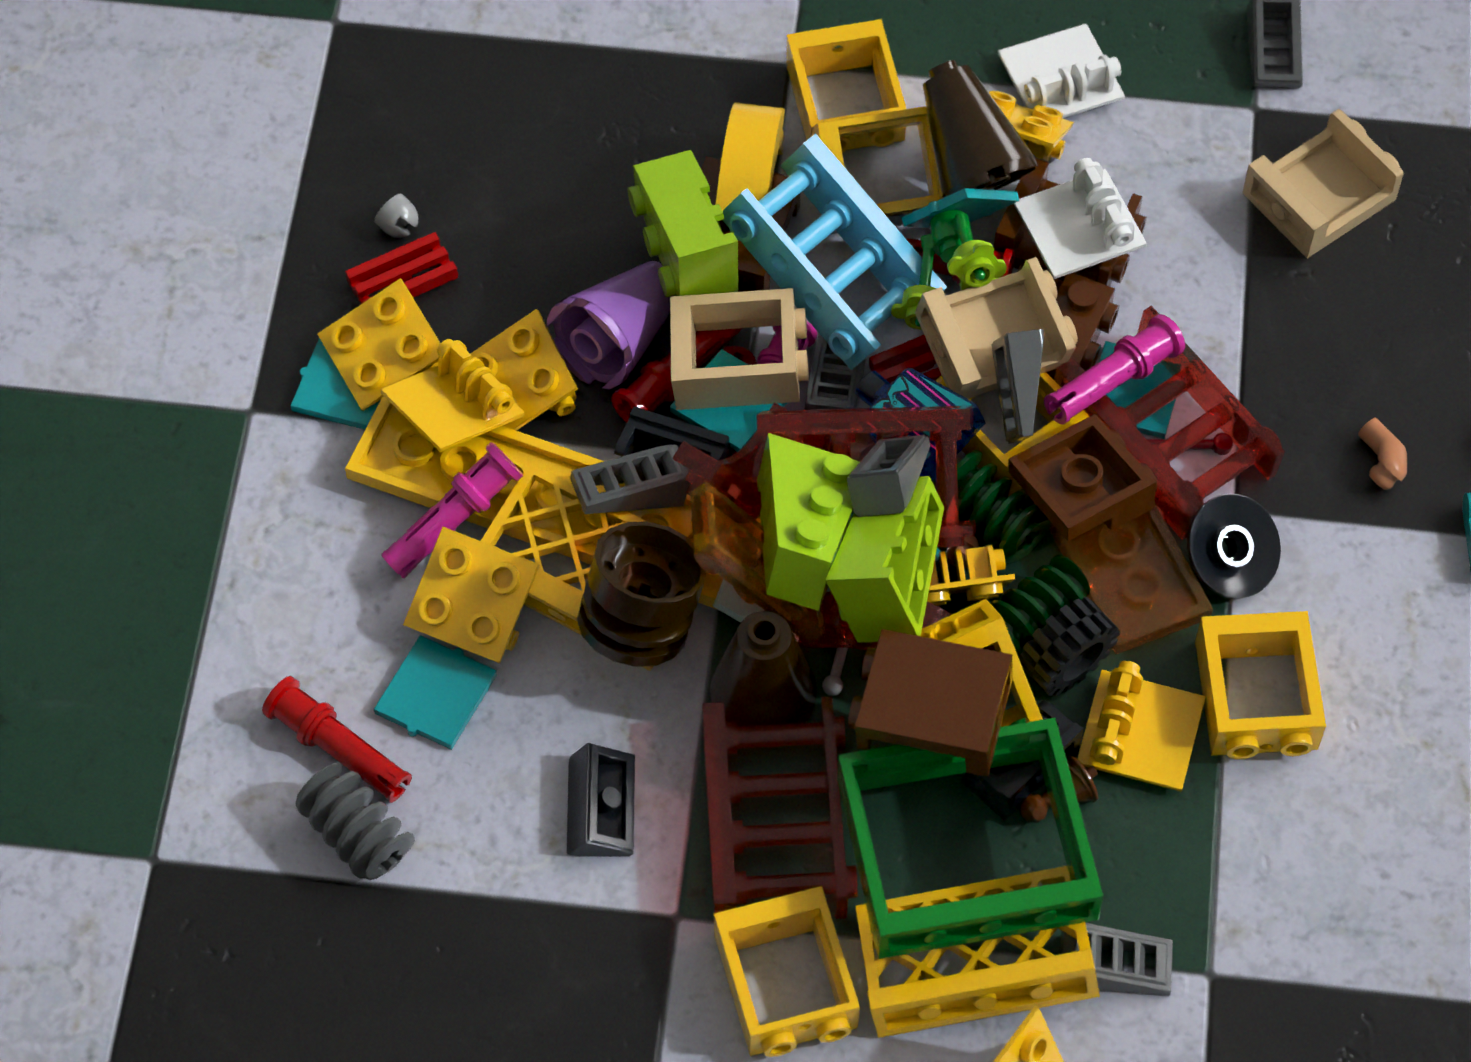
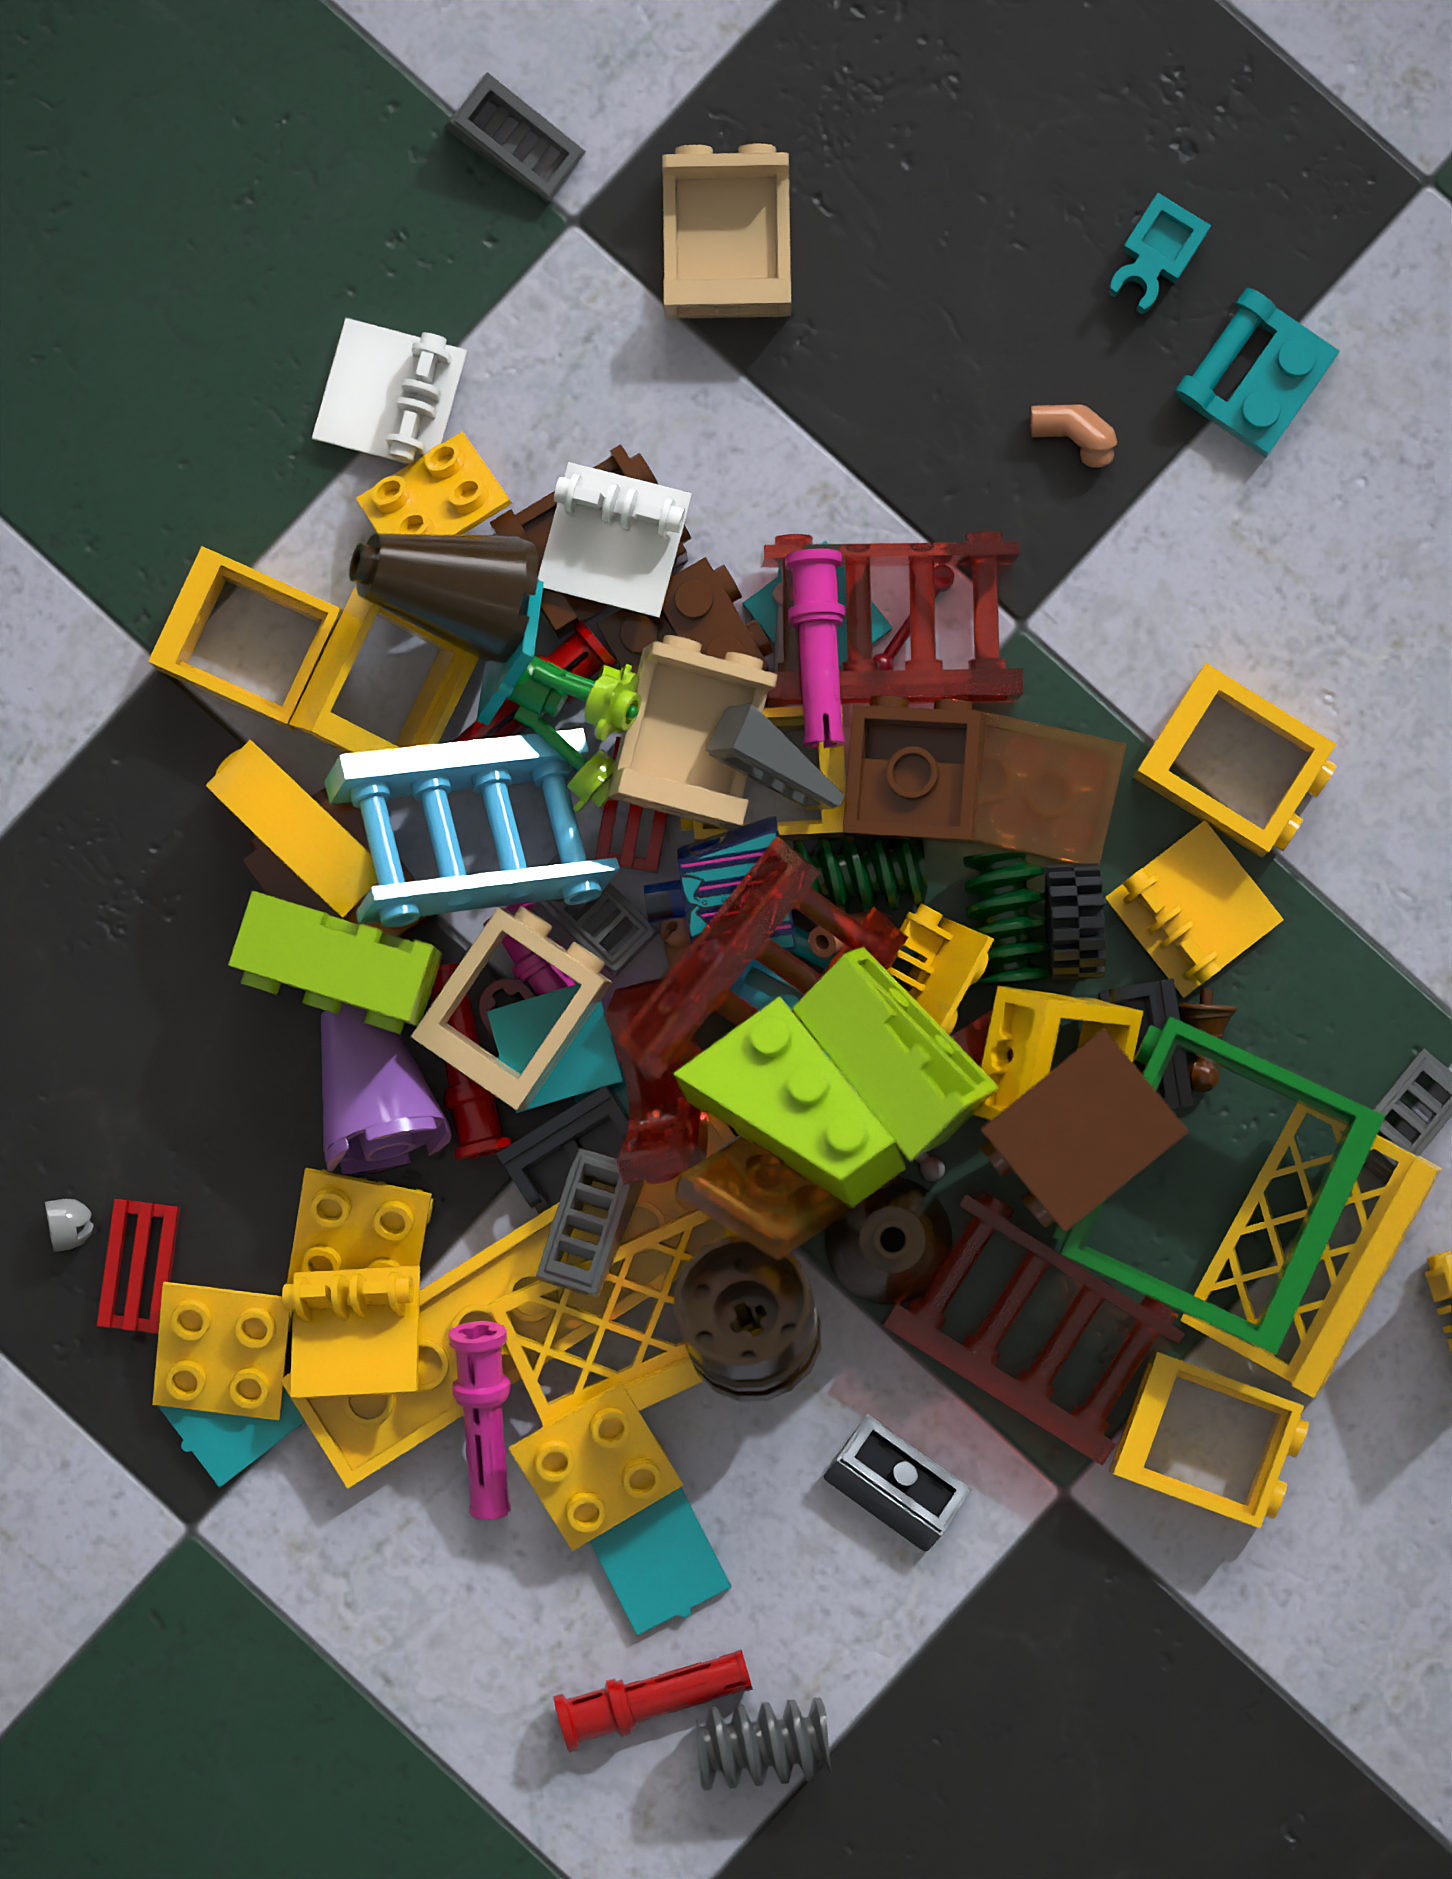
camera: 45 degrees left, 25 degrees up
(888, 475) = (842, 1019): dark grey slope -> none
(1251, 544) = (1092, 662): black dish -> none

